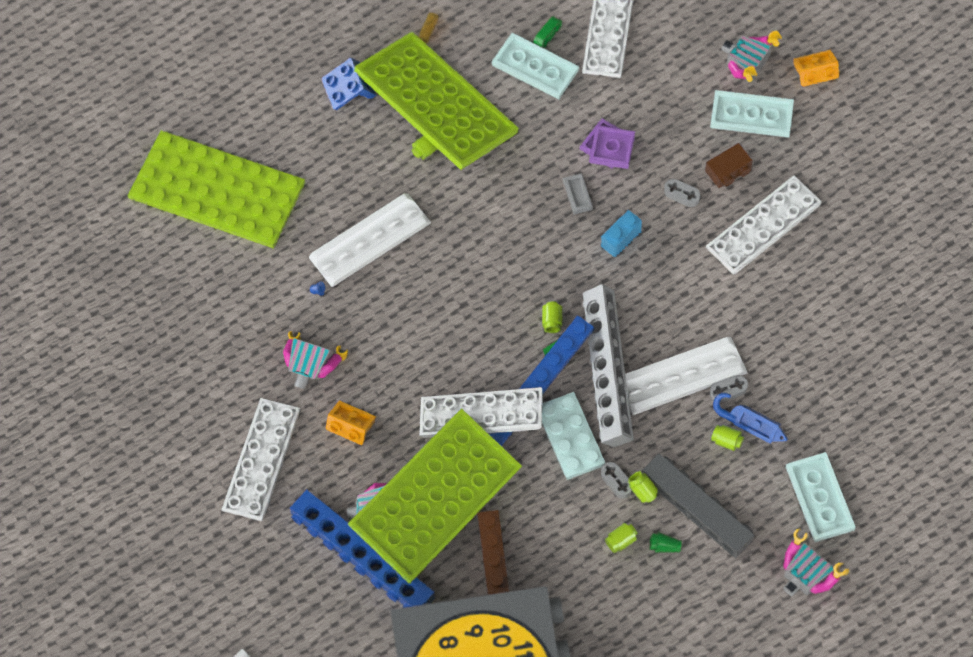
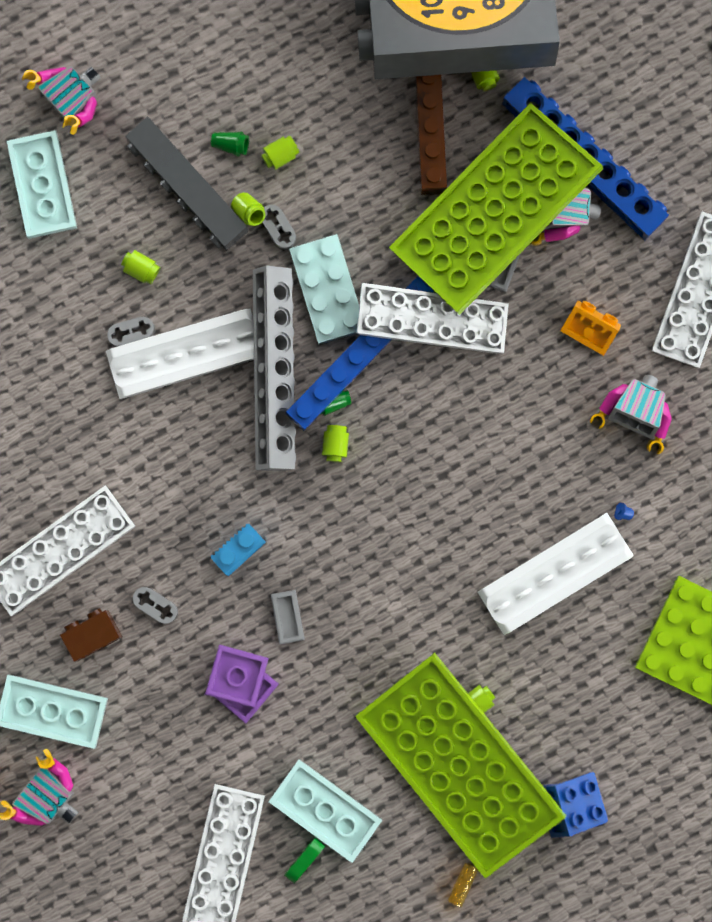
camera: 175 degrees left, 20 degrees up
(750, 421) = (109, 285): plate -> none

